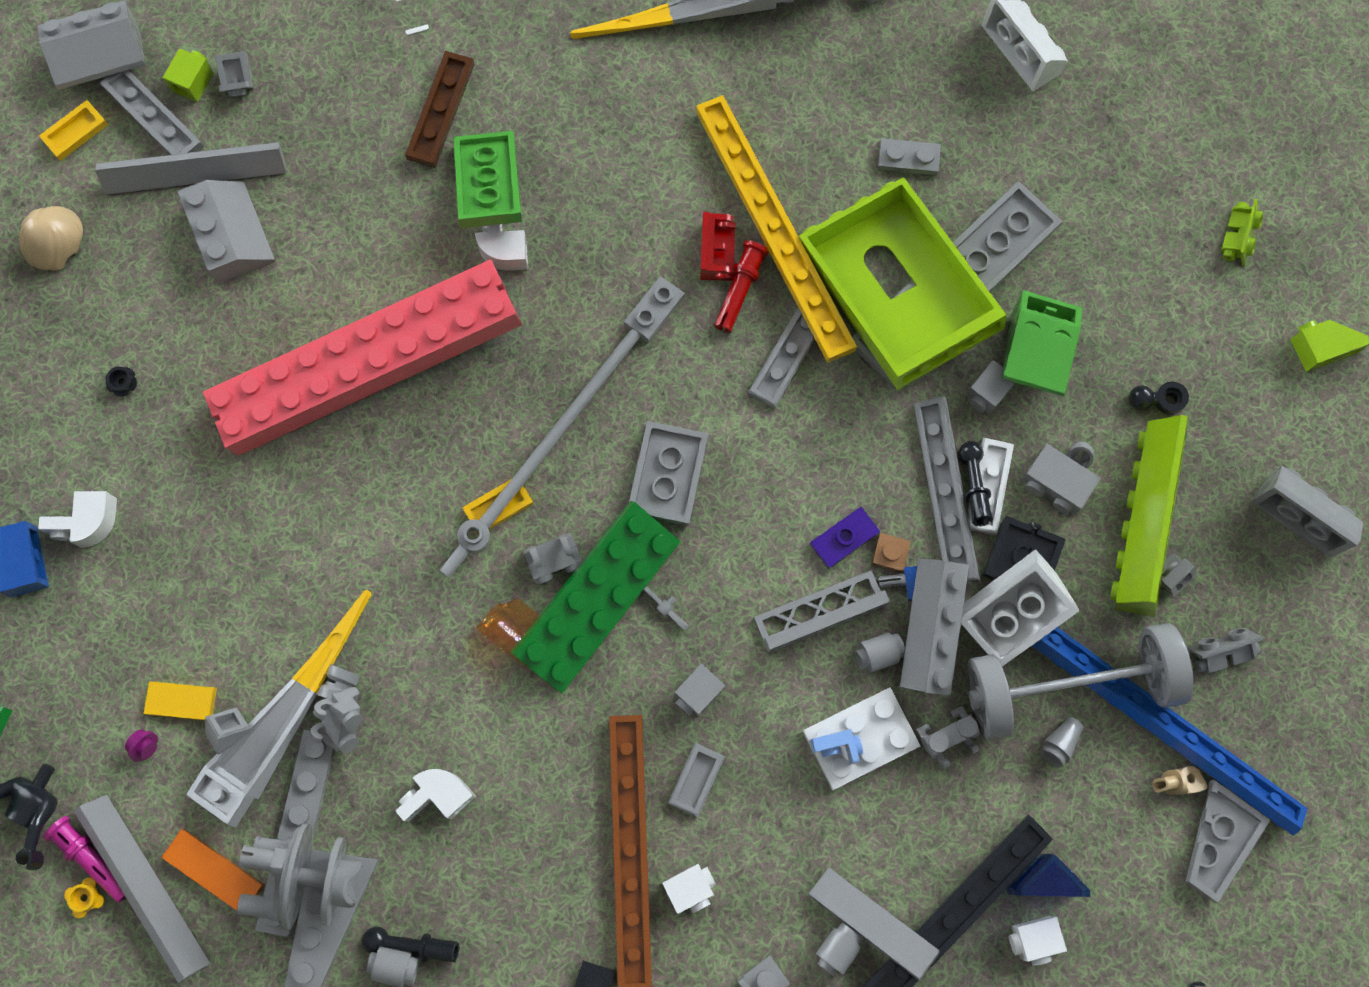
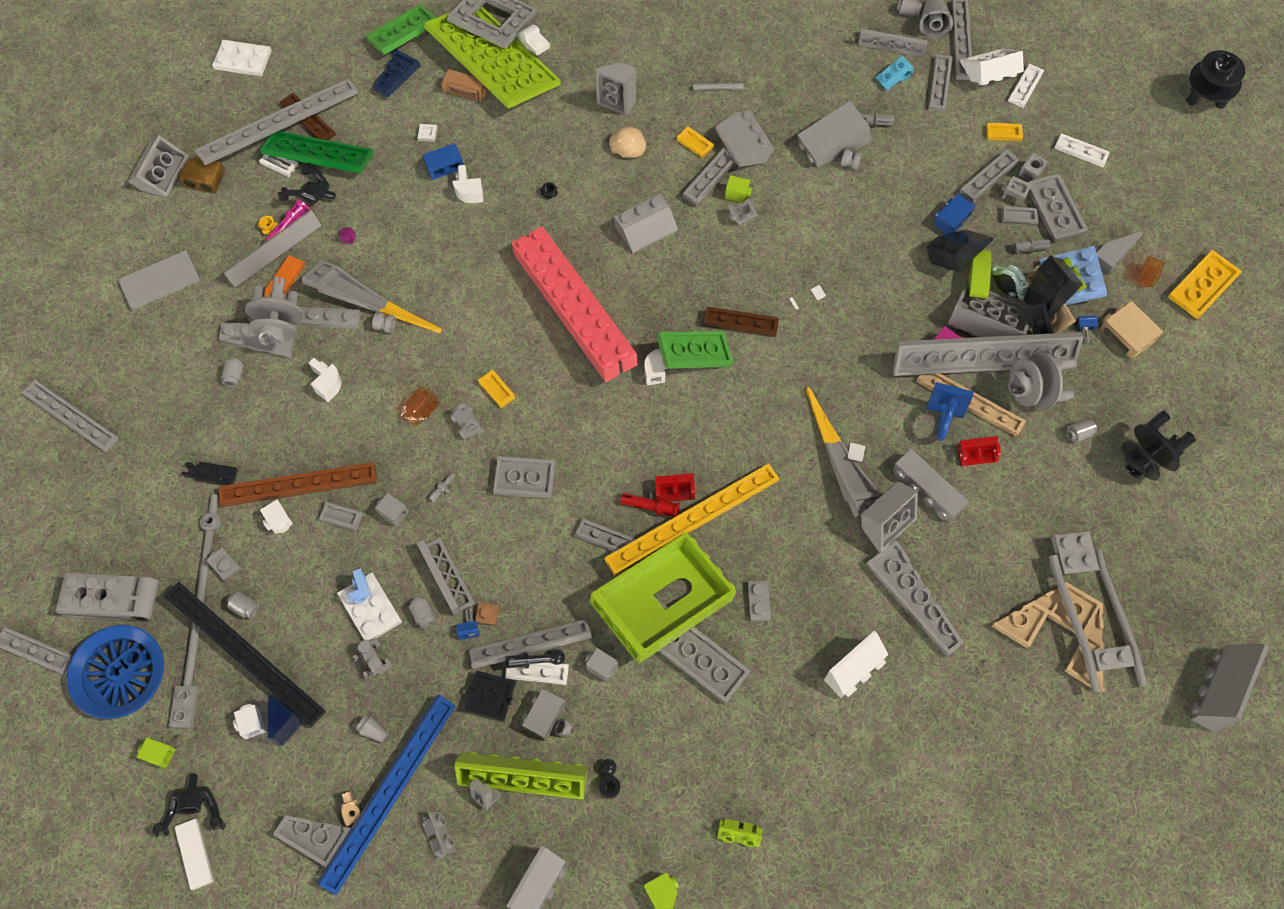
camera: 85 degrees right, 10 degrees down
(179, 700) = (373, 250): yellow tile -> none
(191, 168) = (680, 202): light grey tile -> none
(225, 729) = (358, 272): light grey slope -> none
(339, 720) = (362, 322): light grey piece -> none
(426, 947) = (243, 386): black pin -> none
(595, 597) = (444, 446): green plate -> none
(644, 324) = (619, 453): light grey bar -> none
(844, 537) = (494, 585): dark purple plate -> none
(874, 923) = (256, 621): light grey tile -> none
(934, 626) = (436, 637): light grey brick -> none
(1018, 608) = (450, 686): white slope -> none
(1041, 342) = (631, 690): bright green slope -> none
(1163, 665) = (392, 676): light grey axle -> none

